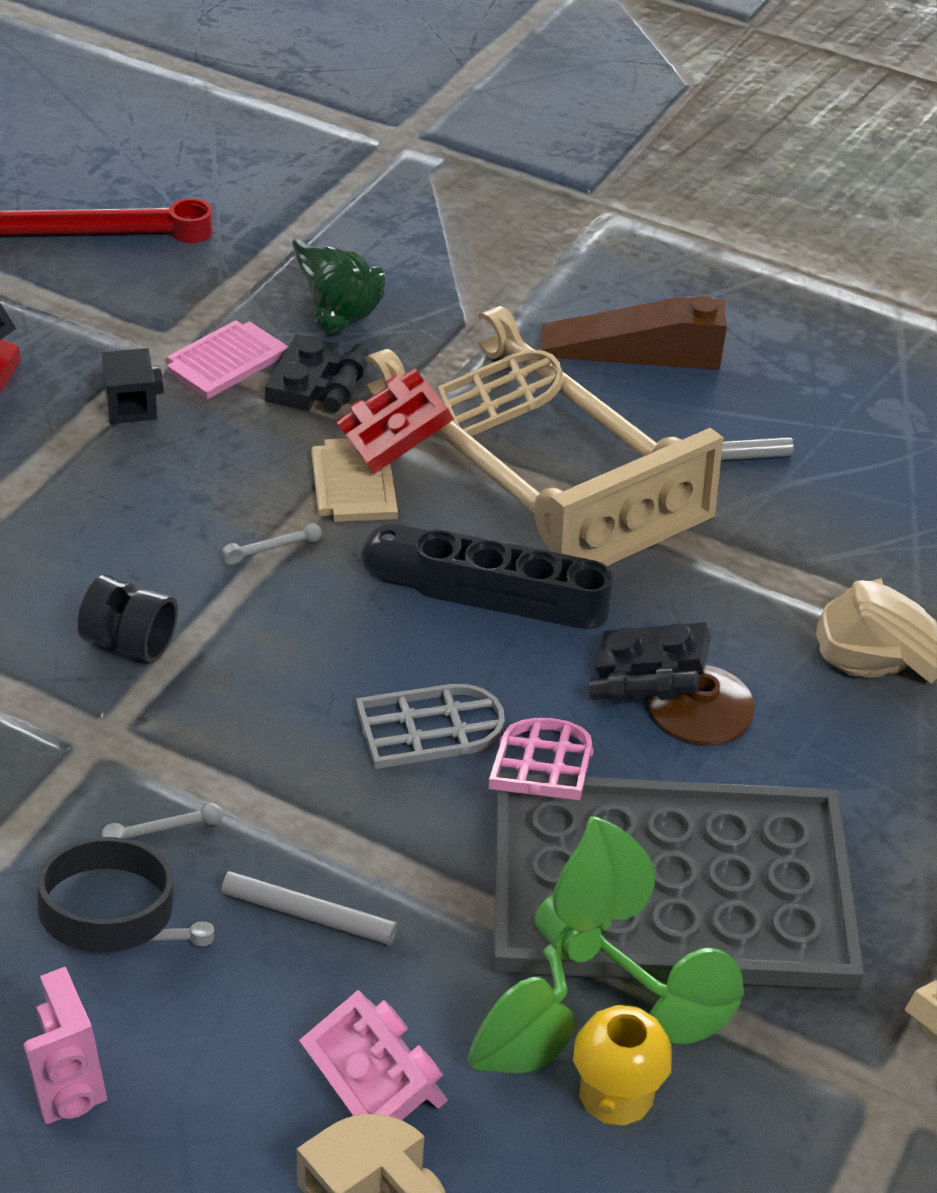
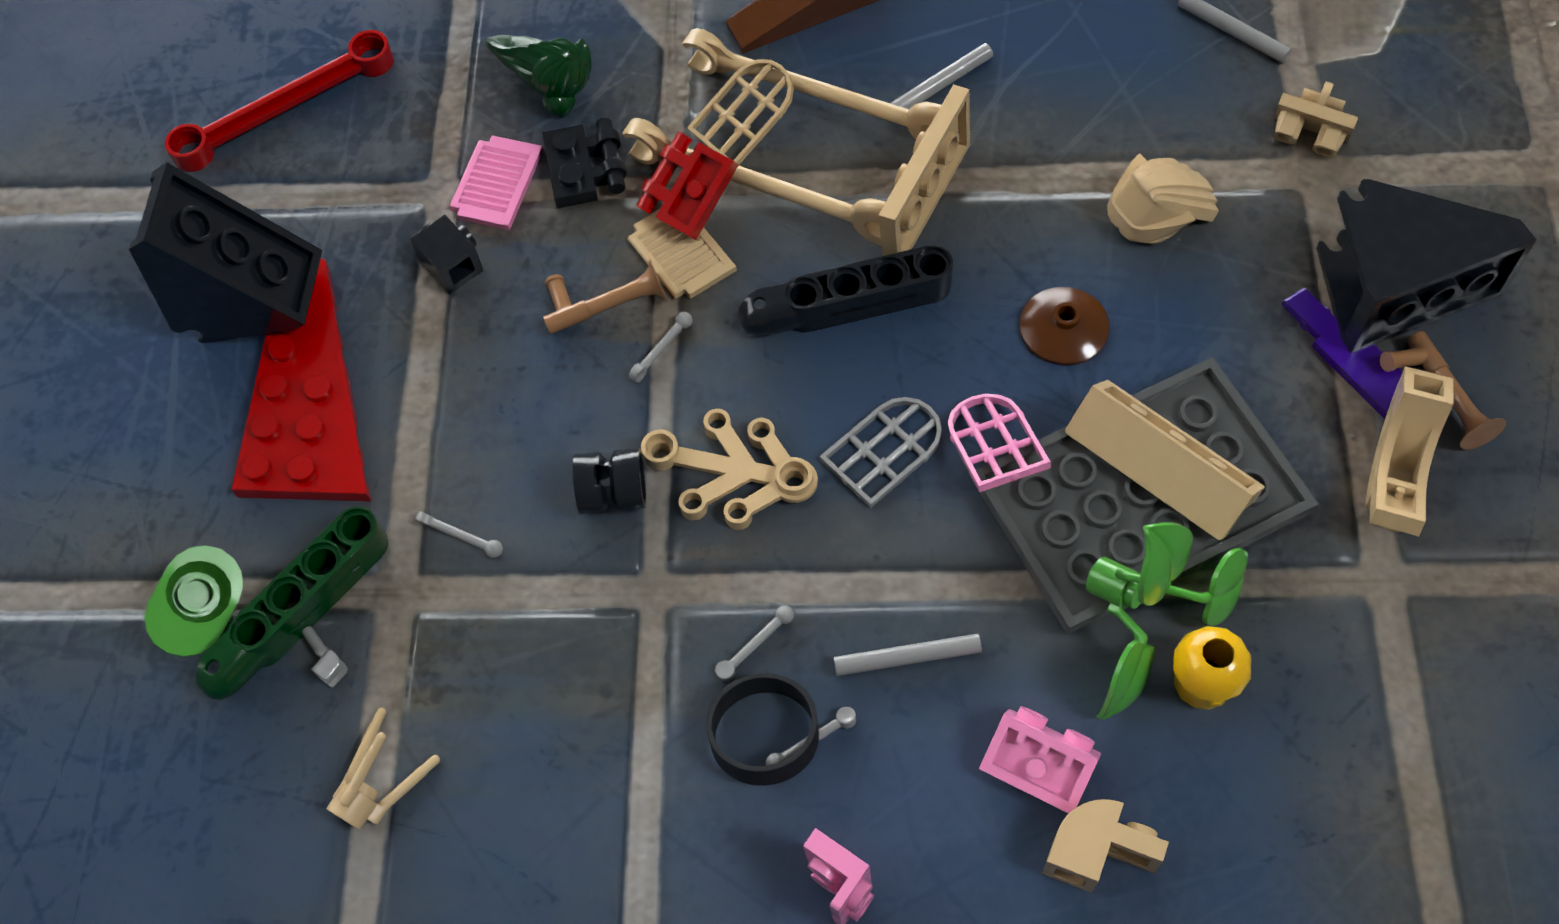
camera: 20 degrees left, 20 degrees up
(208, 480) = (571, 314): none -> medium nougat piece
(306, 702) = (735, 469): none -> tan plant
(650, 662) = (1012, 304): black plate -> none
(710, 847) = (1163, 459): none -> tan panel

